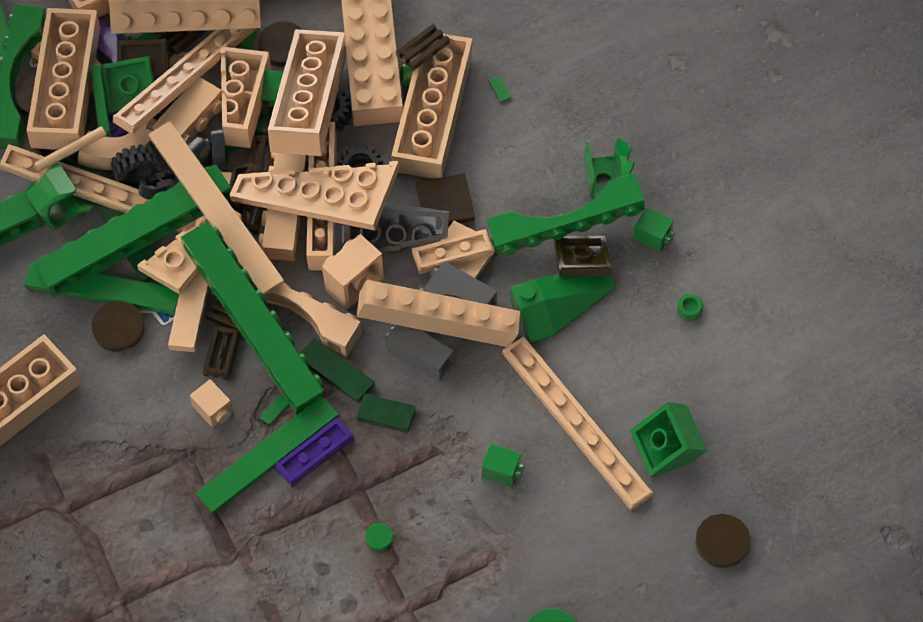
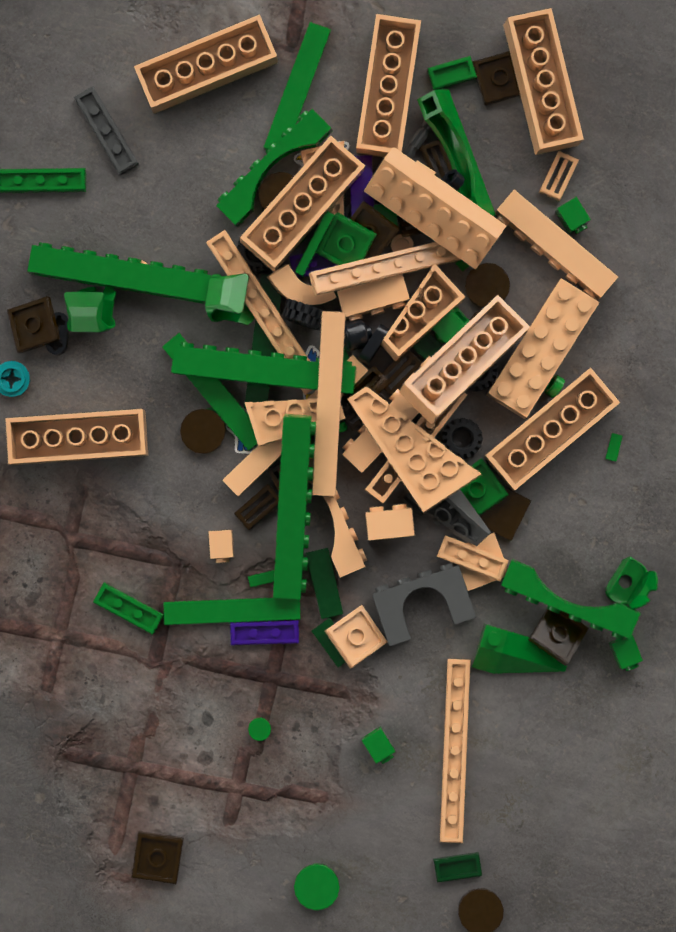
camera: 40 degrees right, 25 degrees up
(70, 148) = (262, 271): light nougat bar -> none
(157, 183) = (308, 337): black beam -> none
(165, 525) = (128, 608): none -> green tile
(402, 390) = (356, 636): none -> light nougat tile
(414, 189) = (485, 490): none -> green tile
(420, 44) = (597, 382): dark brown tile -> none
(438, 313) = (419, 608): light nougat brick -> none
(667, 519) = (457, 867): none -> dark green tile
(668, 439) = (503, 815): green slope -> none
(690, 307) = (602, 727): green tile -> none

